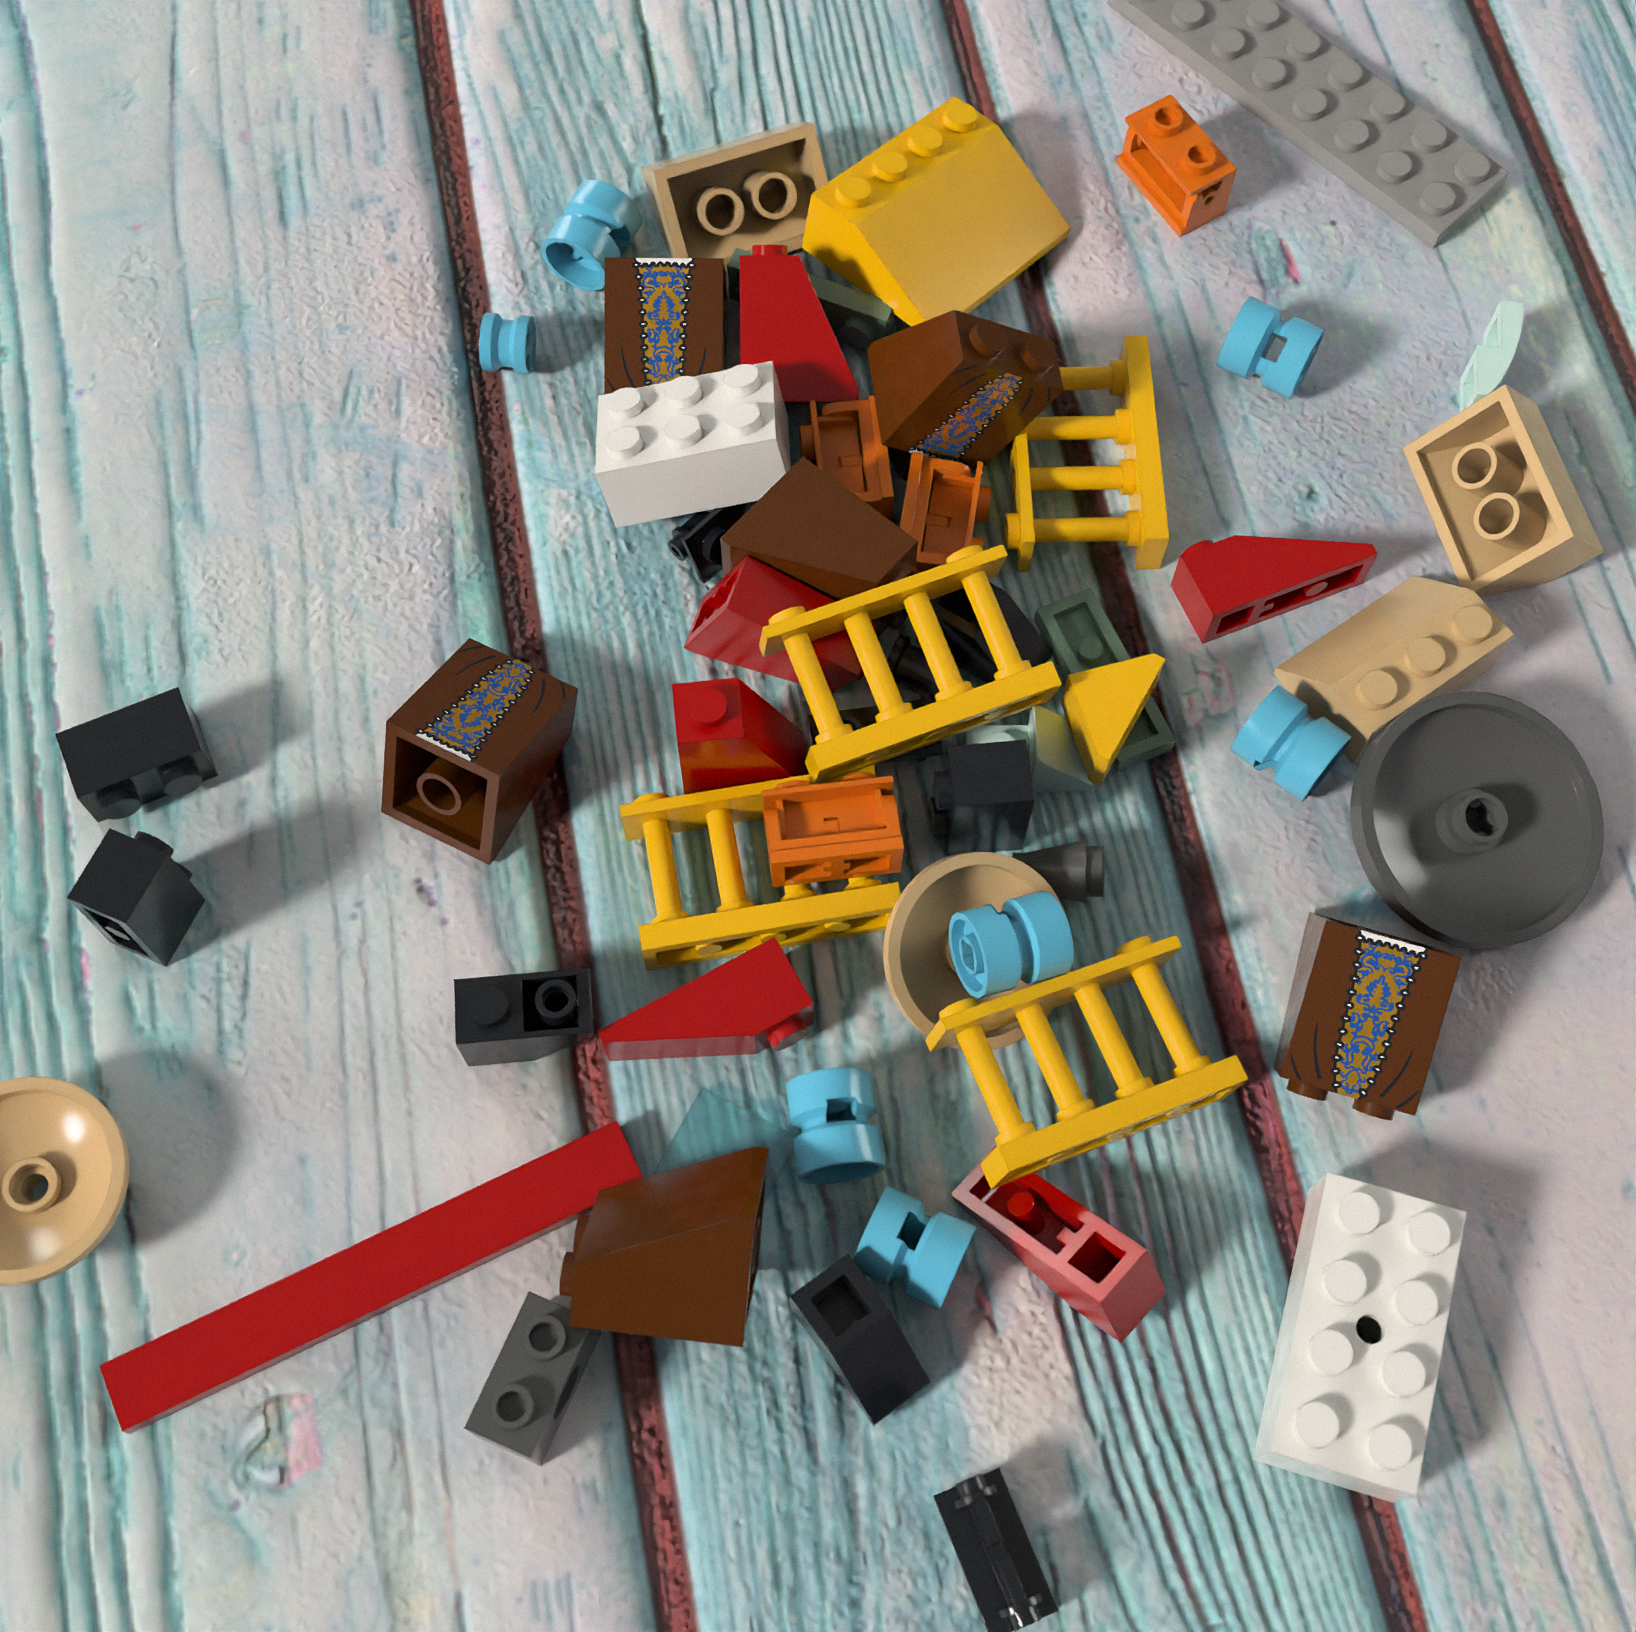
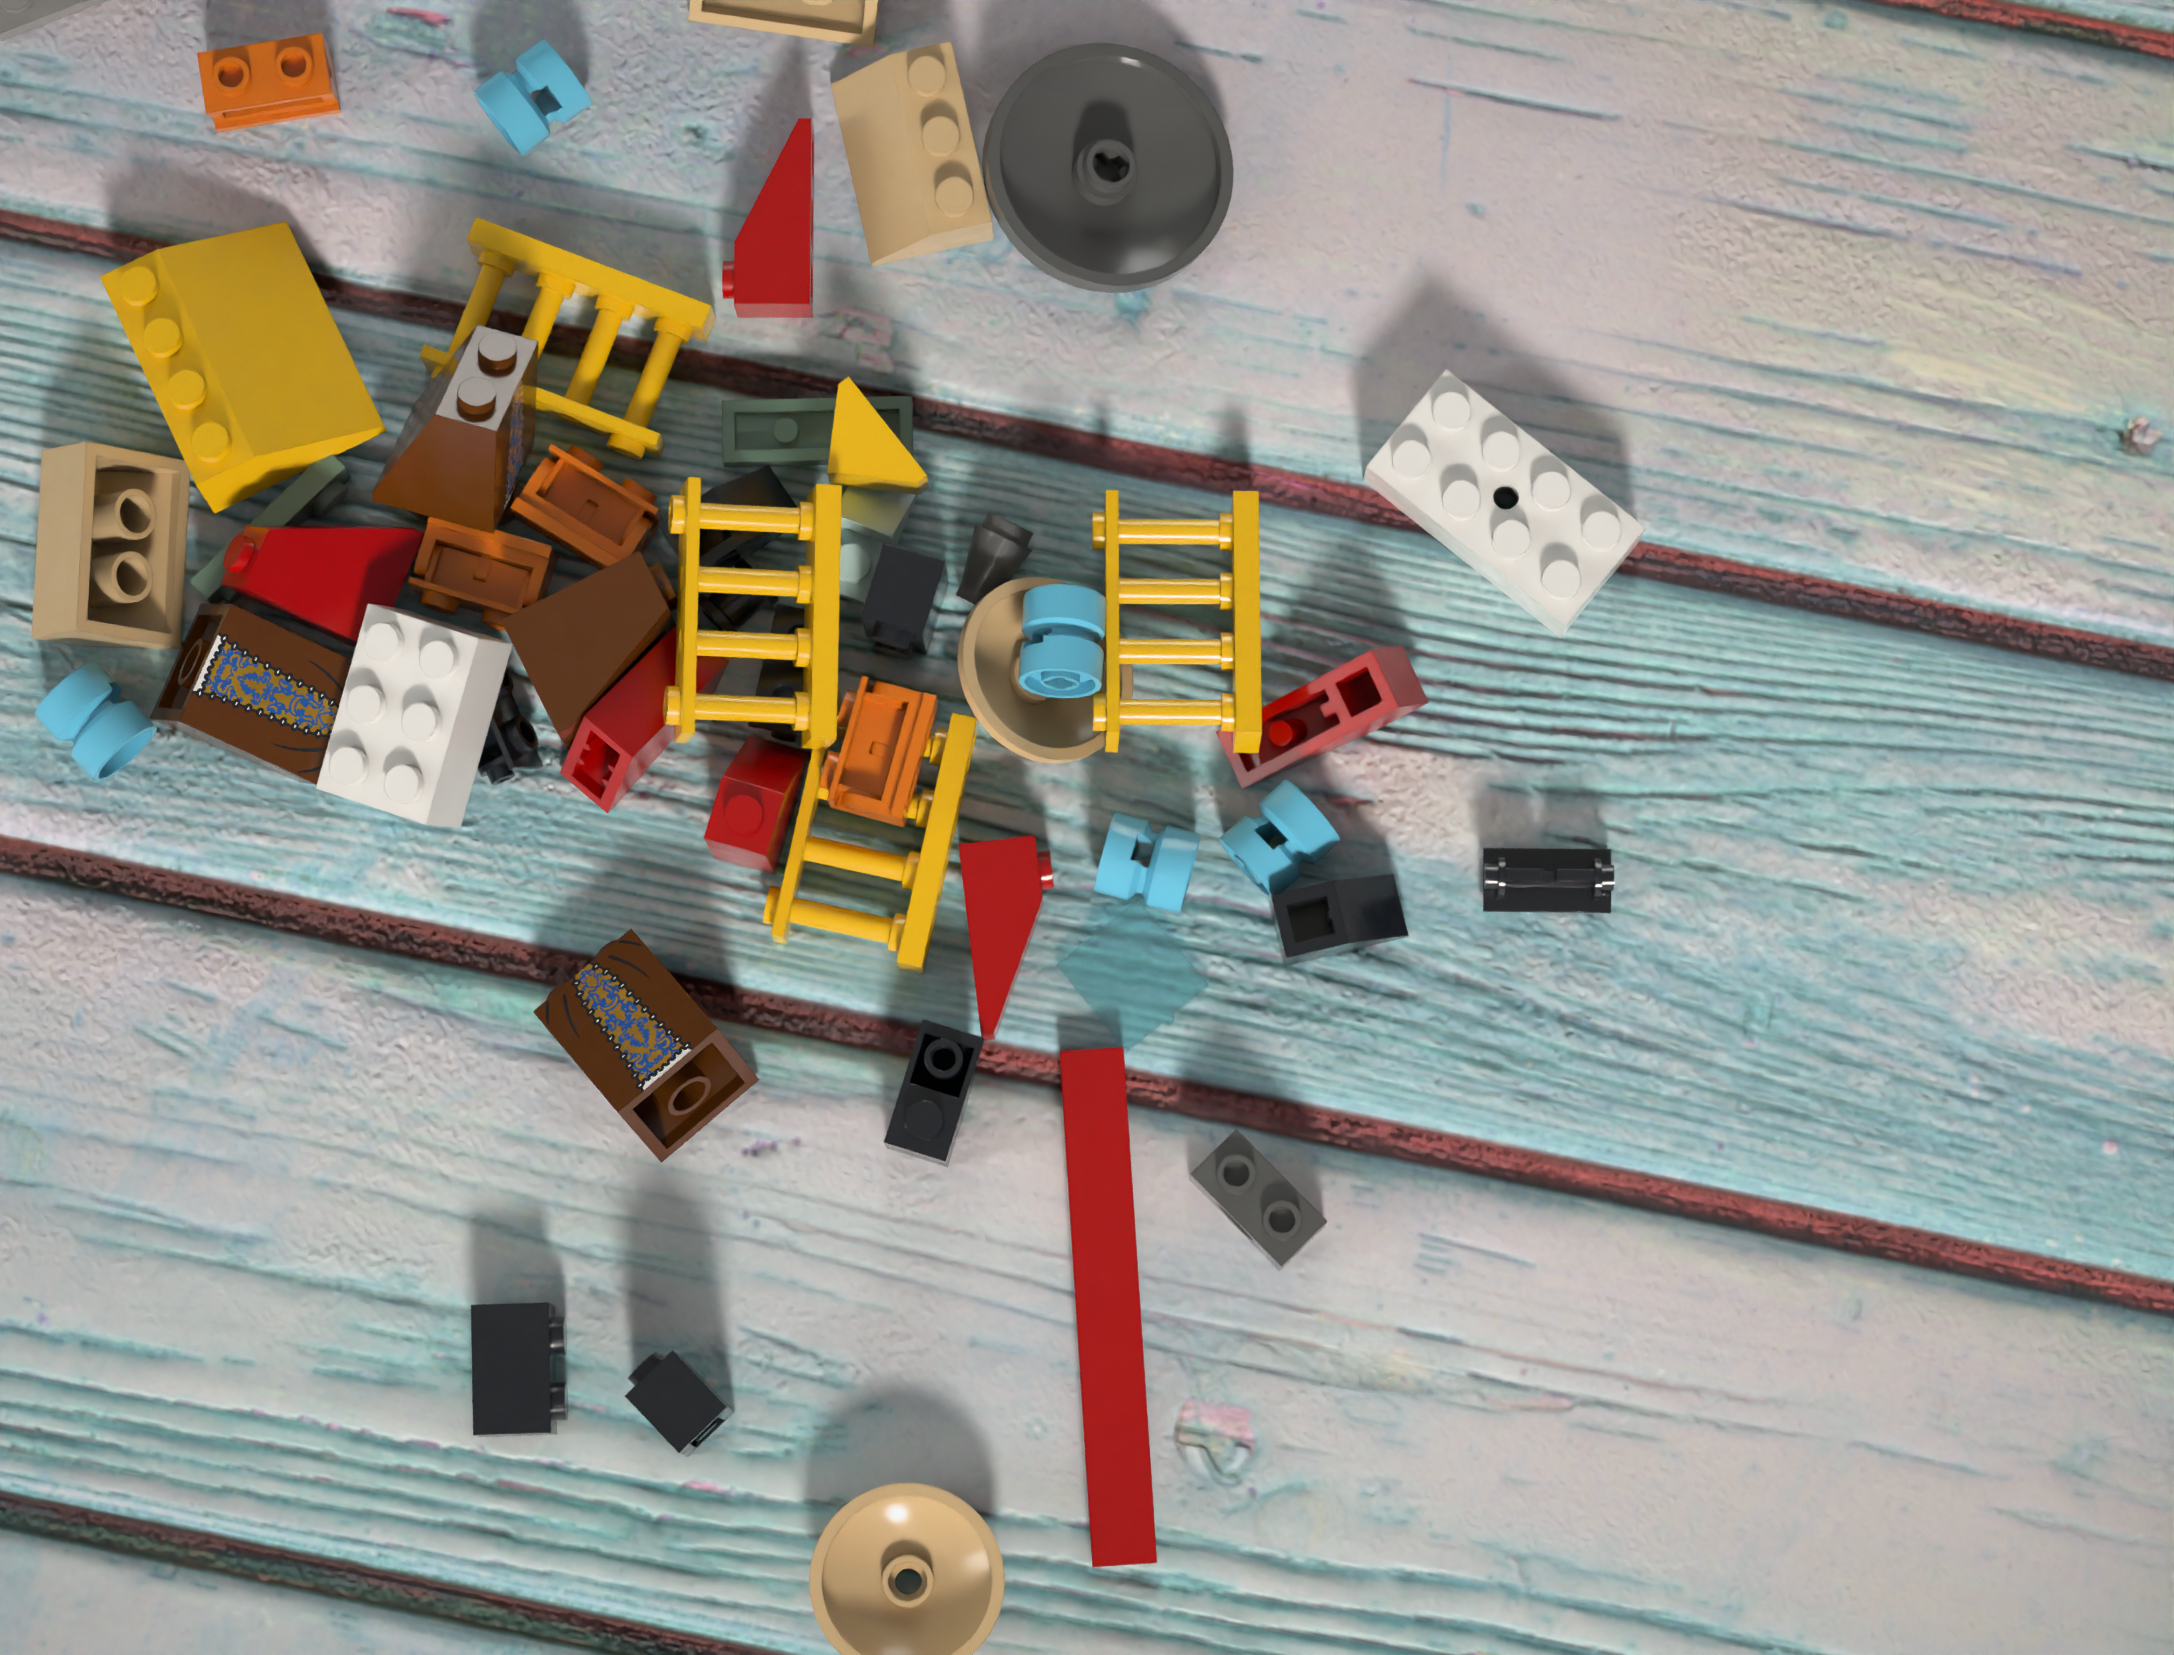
camera: 65 degrees left, 15 degrees up
(507, 343) = (189, 856): medium azure wheel -> none
(672, 1252) = (1205, 1039): reddish brown slope -> none
(1290, 743) = (965, 292): medium azure wheel -> none
(1363, 1016) = (1236, 359): reddish brown slope -> none

